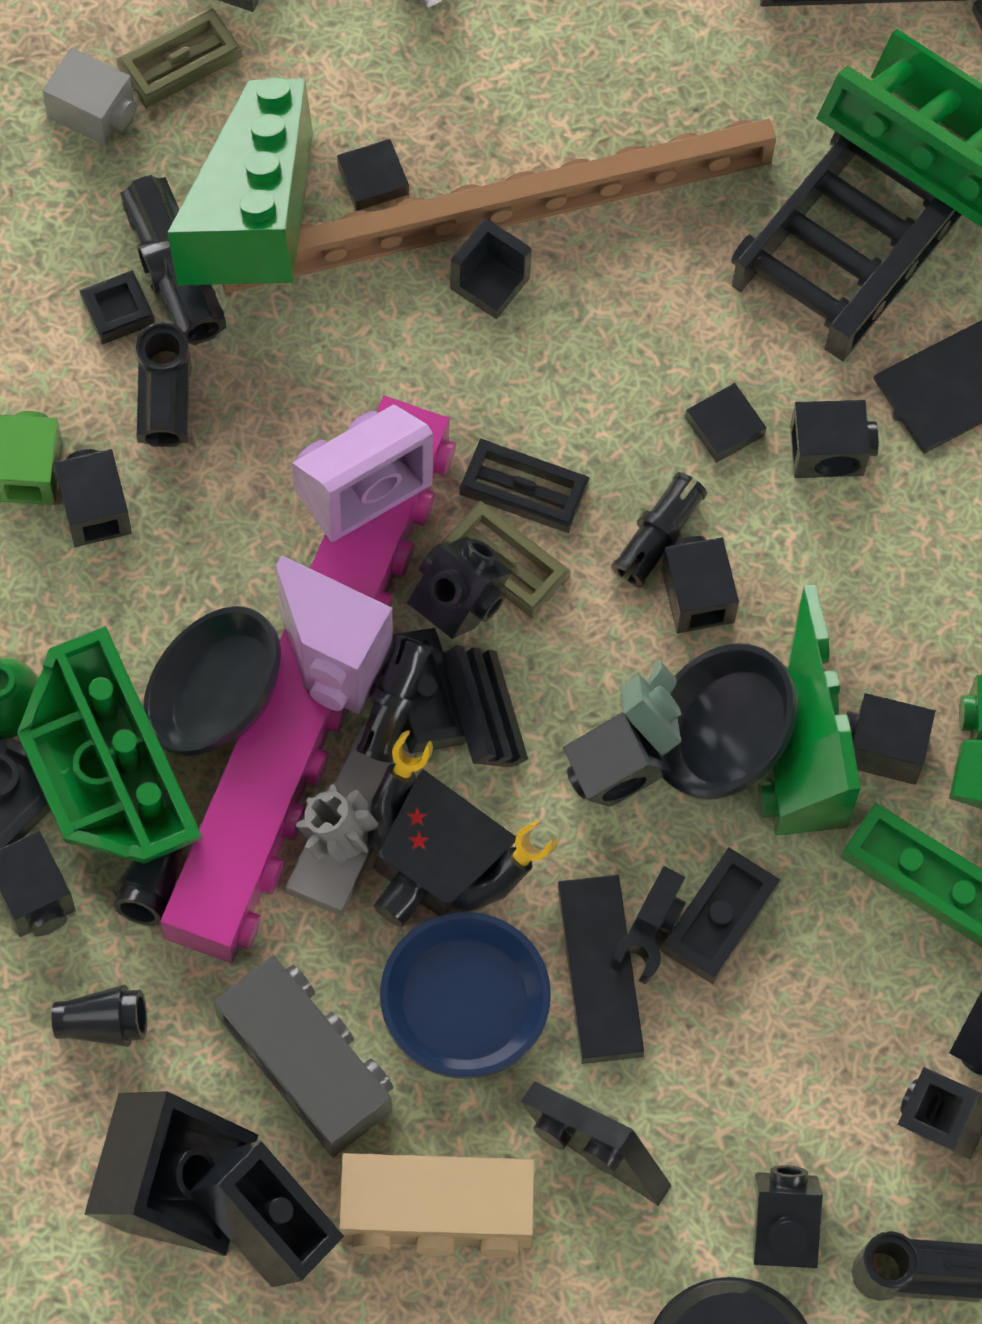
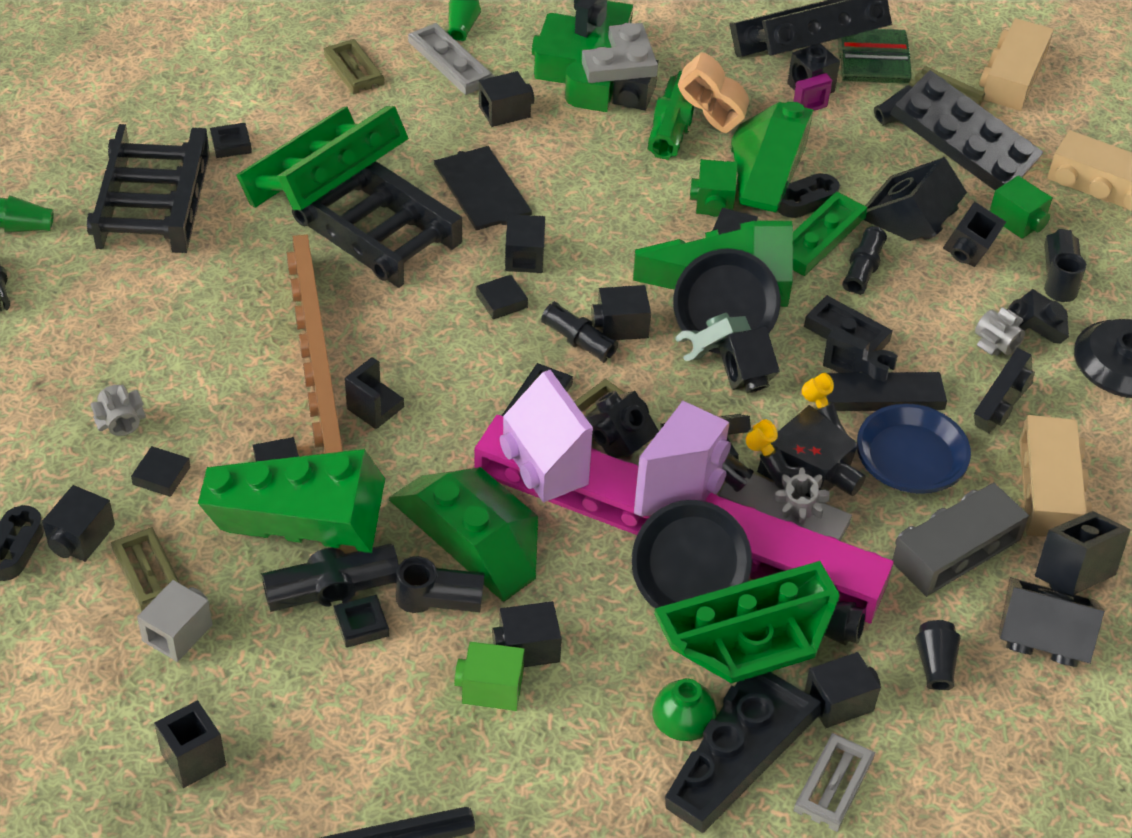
camera: 85 degrees left, 20 degrees down
(285, 398) = (476, 525): none -> green wedge
(340, 44) = (160, 471): none -> black tile
(734, 1145) = (999, 332): none -> light grey gear
(882, 947) = (865, 260): none -> black pin

